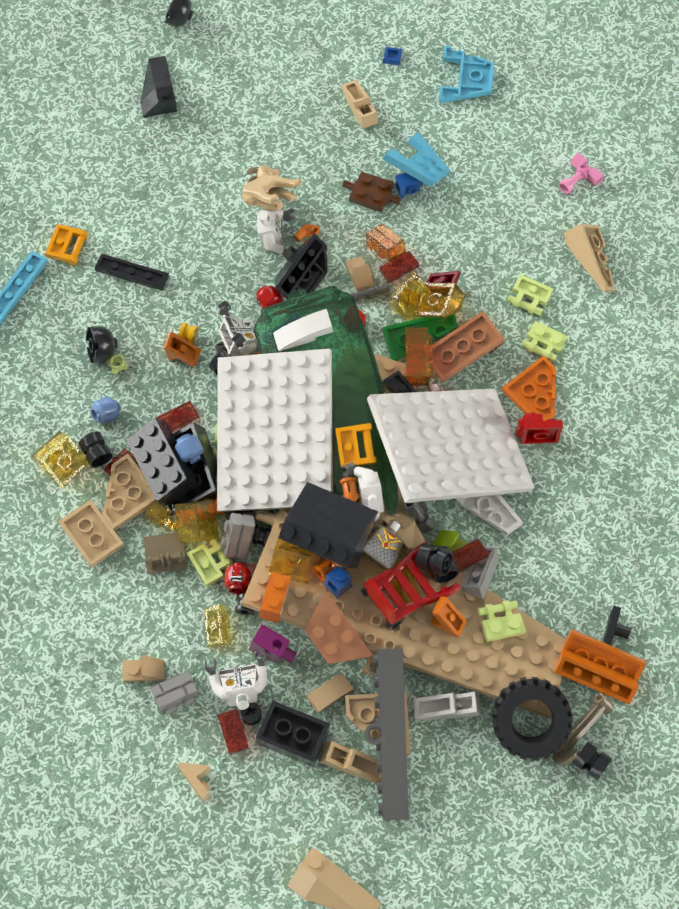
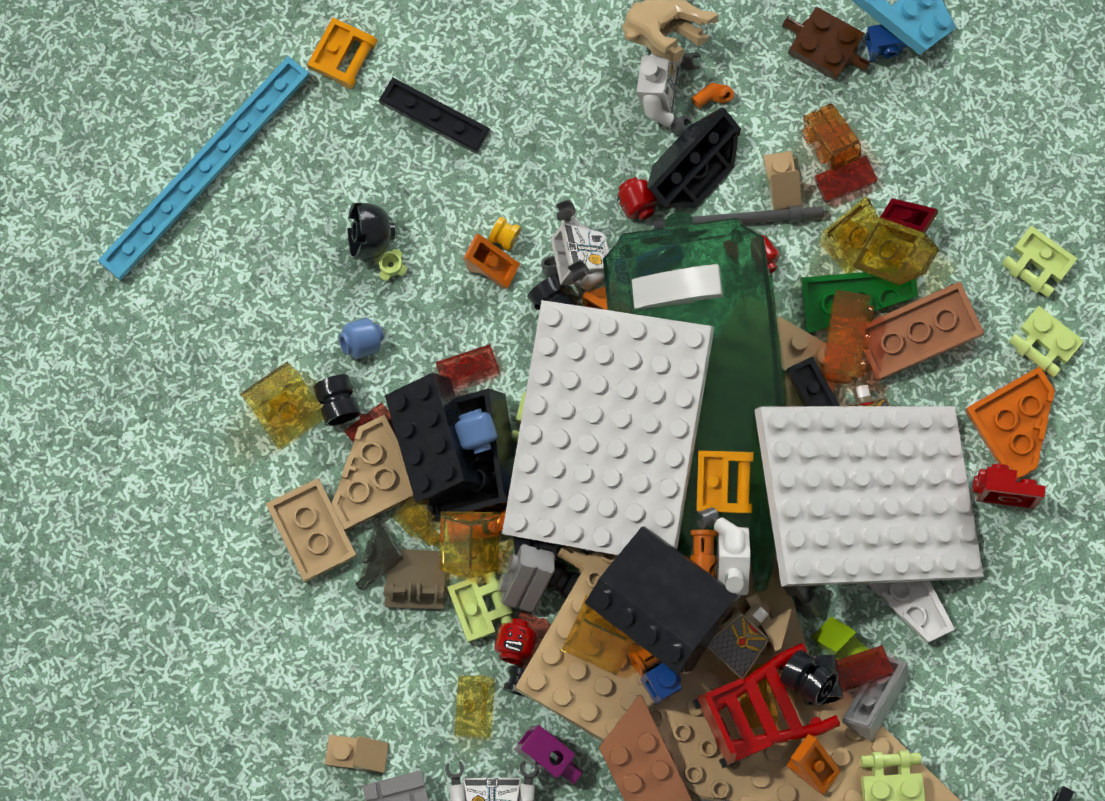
camera: 10 degrees right, 10 degrees up
(139, 542) = (379, 556): none -> clear smoke tile
(274, 597) = (564, 692): orange brick -> none

